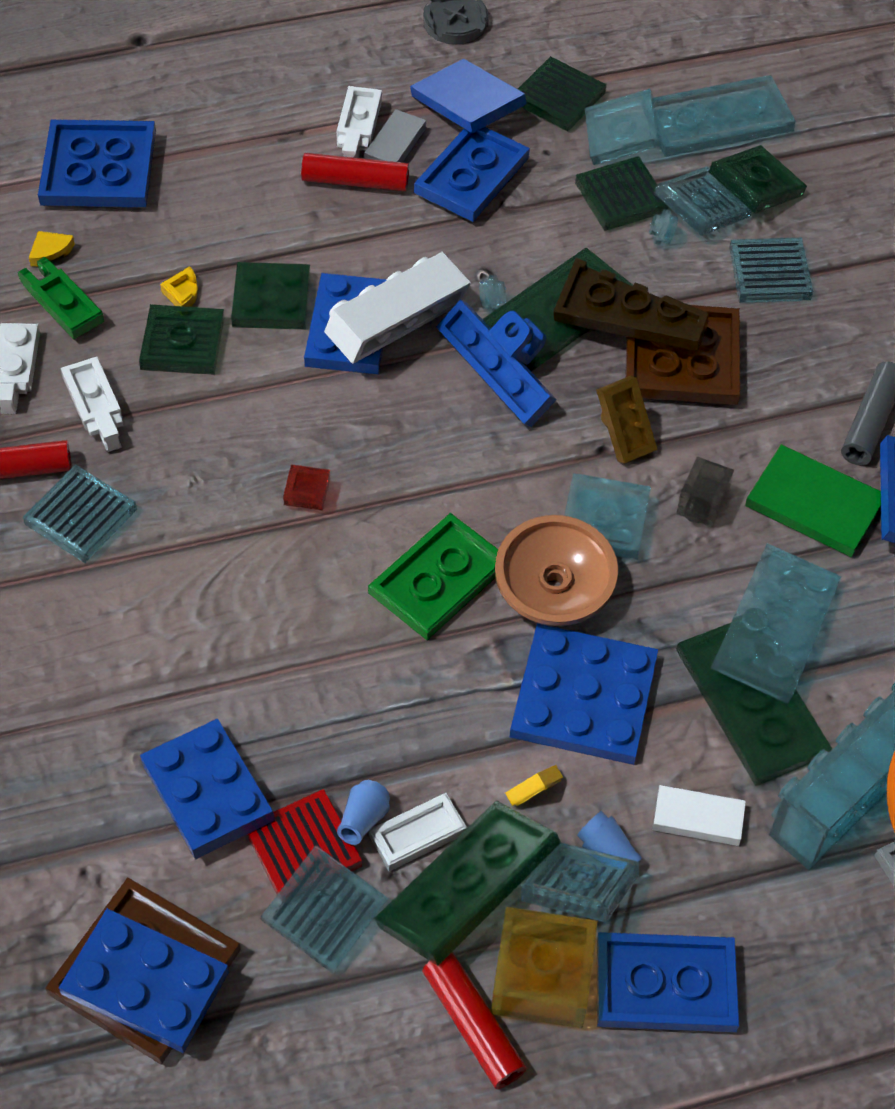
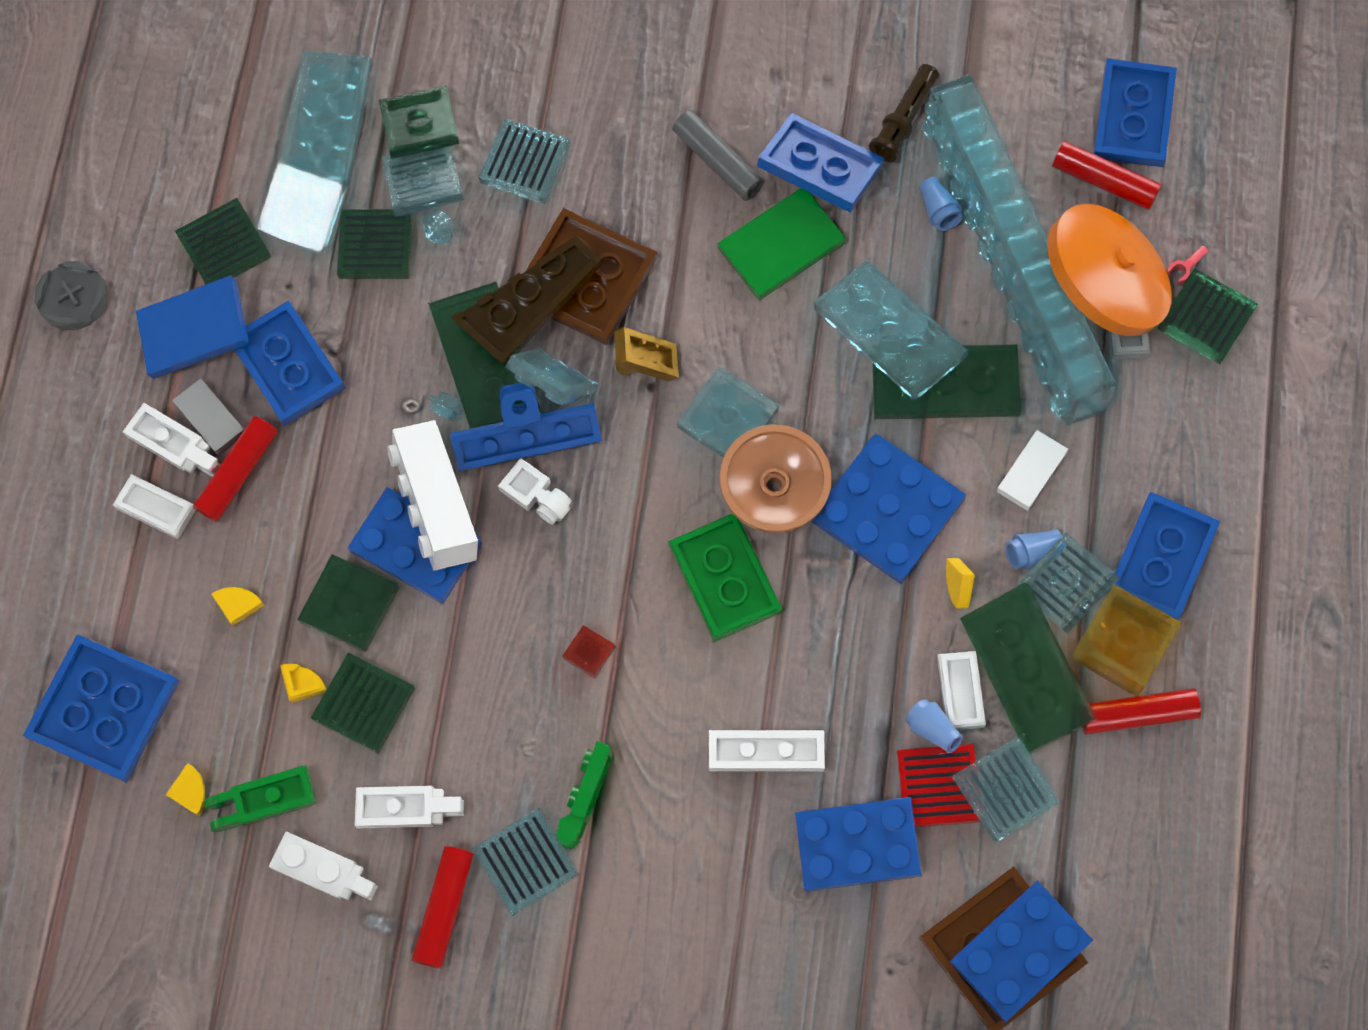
camera: 60 degrees left, 15 degrees up
(161, 533) = (583, 797): none -> green hinge
(233, 219) = (237, 603): none -> yellow tile
(272, 671) = (766, 750): none -> white plate
(295, 134) = (154, 506): none -> white tile
(445, 383) = (528, 485): none -> white plate
(561, 353) = (557, 379): none -> clear light blue plate
(704, 492) = (741, 326): clear smoke brick -> none

